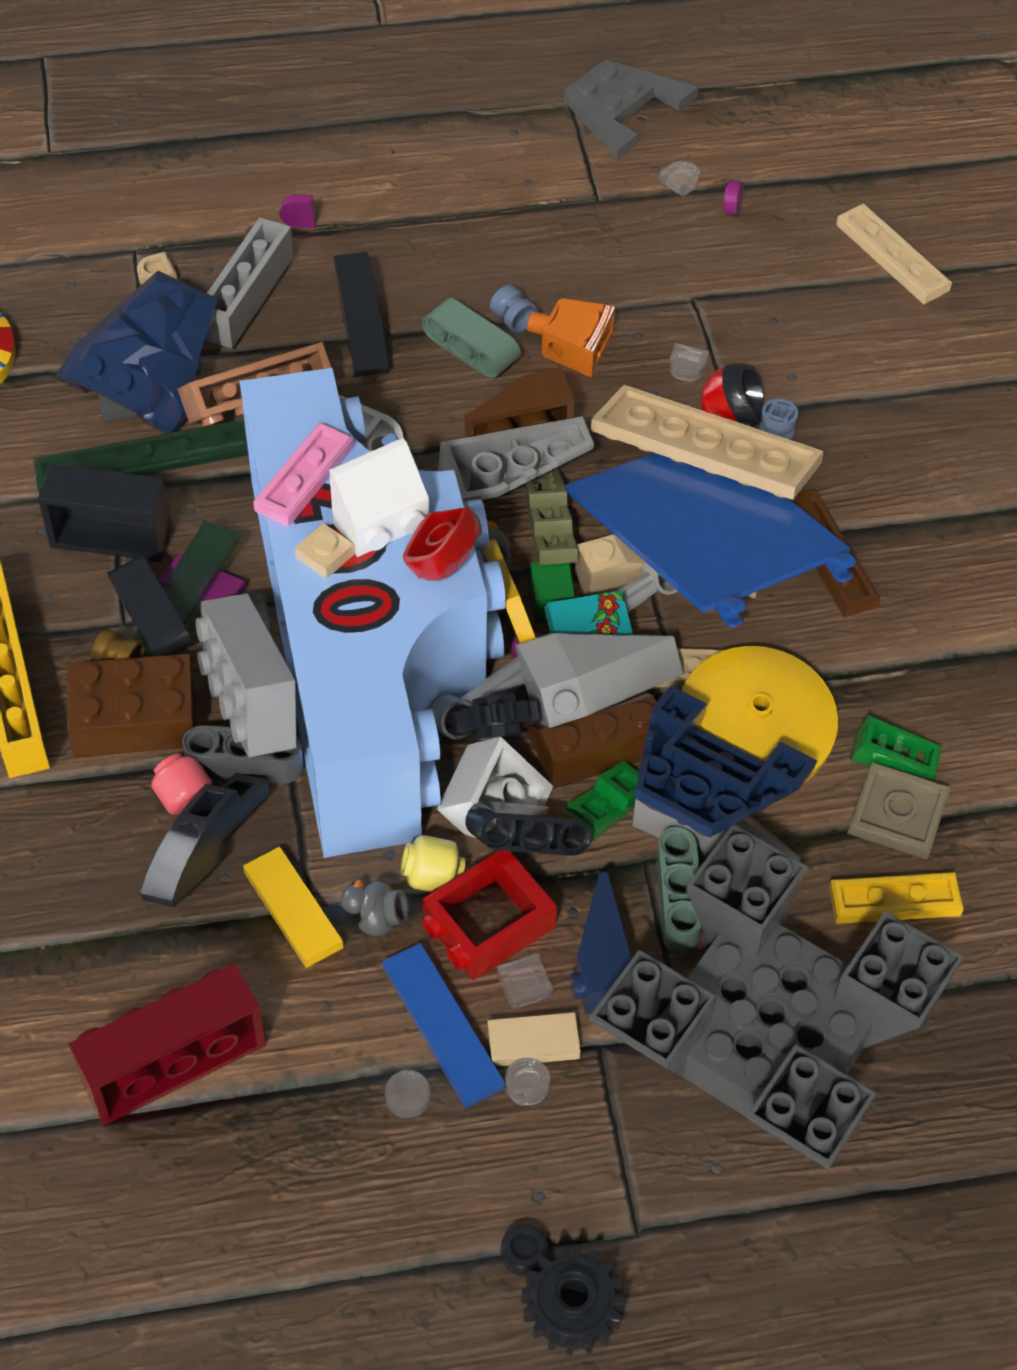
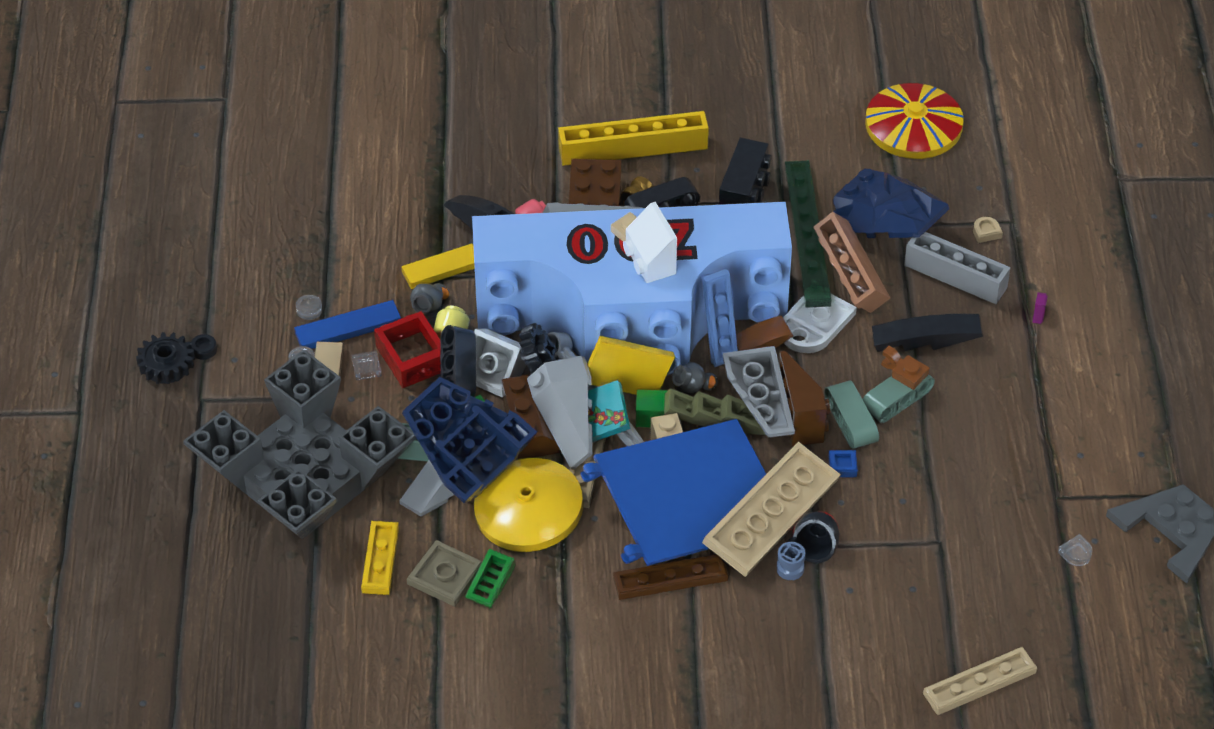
camera: 100 degrees right, 5 degrees down
(168, 1043) = (355, 197): dark red brick -> none
(303, 474) = (697, 224): bright pink tile -> none
(442, 543) = (617, 276): red piece -> none
(448, 313) = (906, 370): none -> dark orange plate
(493, 379) = (851, 414): none -> sand green beam
(511, 307) = (925, 420): sand blue wheel -> none
(574, 333) = (894, 453): orange torso -> none
(594, 390) = (843, 462): none -> blue tile
(602, 948) = (363, 394): dark blue slope -> none
(688, 362) = (866, 522): clear tile -> none
(733, 197) = (1044, 576): magenta tile -> none

